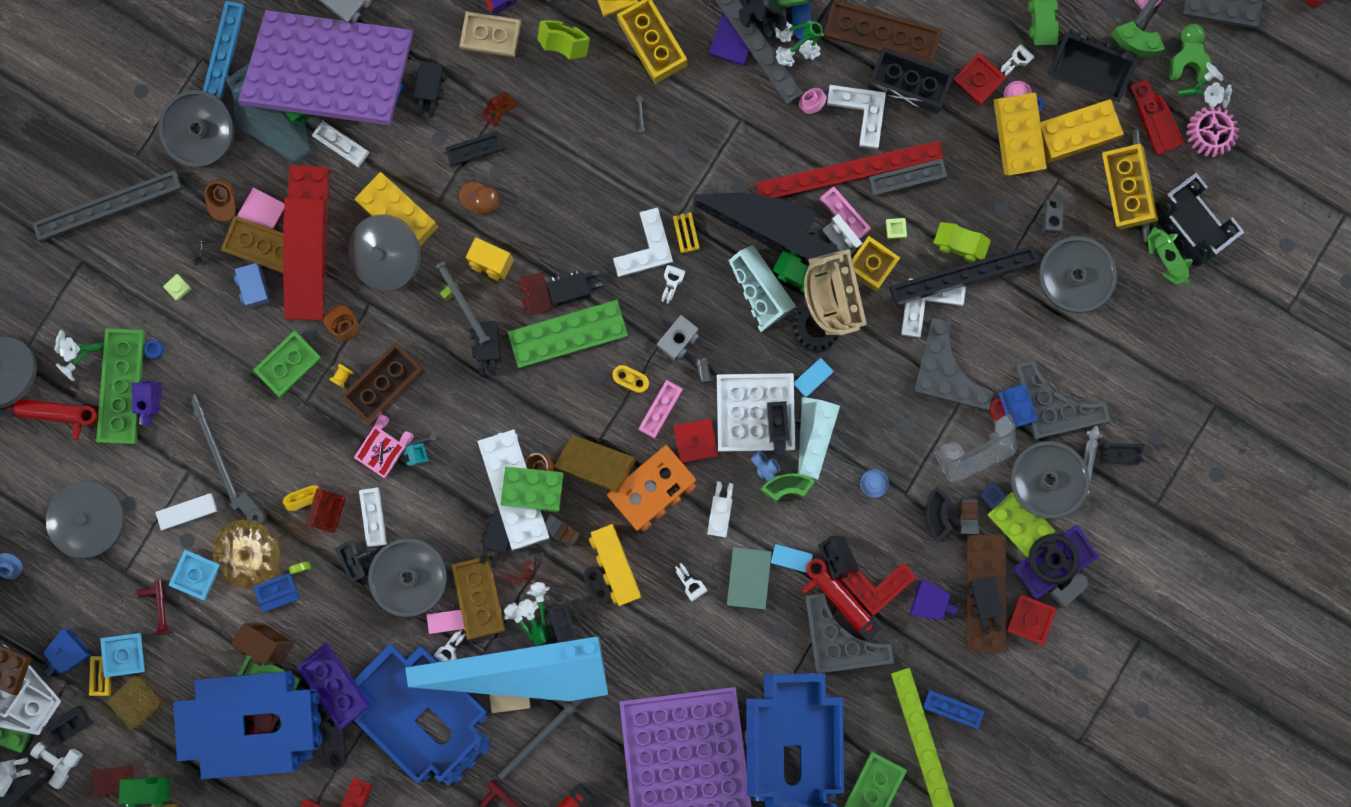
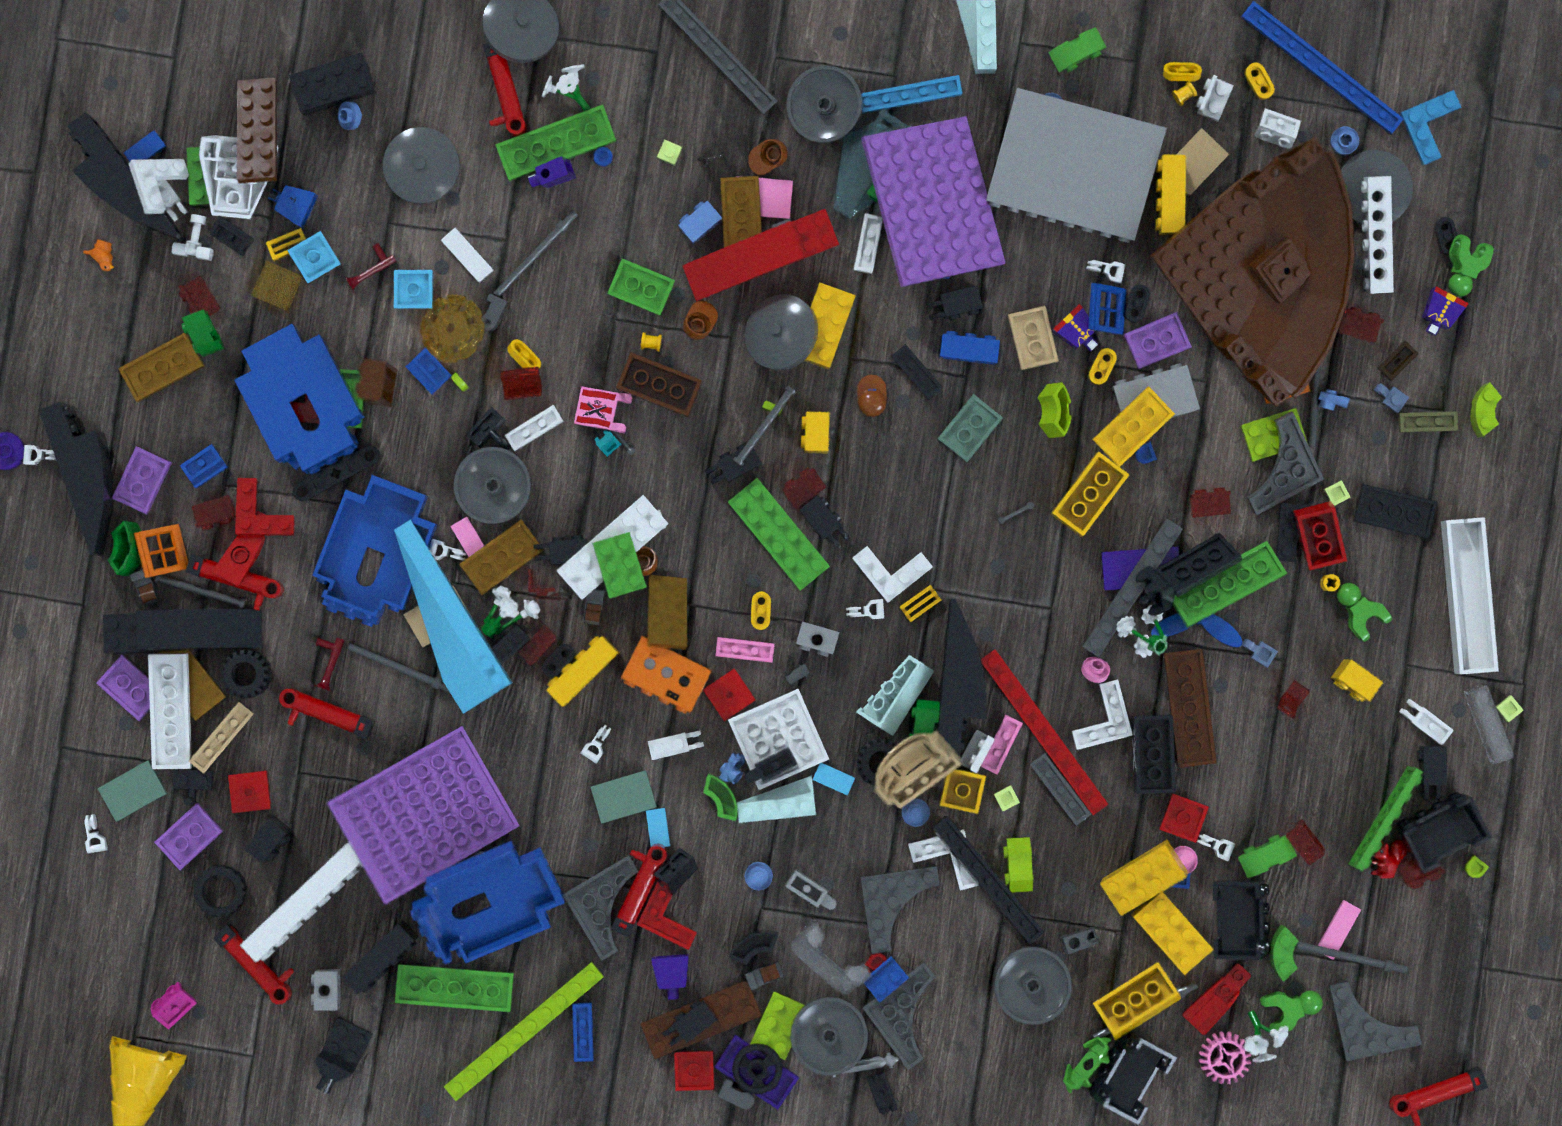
camera: 60 degrees right, 5 degrees up
(334, 686) = (367, 462): dark purple tile -> none
(474, 92) = (969, 348): none -> blue brick
(499, 105) = (967, 377): clear red bracket -> none
(546, 123) = (970, 428): none -> sand green tile
(574, 598) = (538, 645): none -> clear red bracket
(876, 315) = (916, 812): none -> medium blue plate
(907, 440) = (810, 890): none -> light grey hinge
(992, 495) = (793, 989): dark blue plate -> none

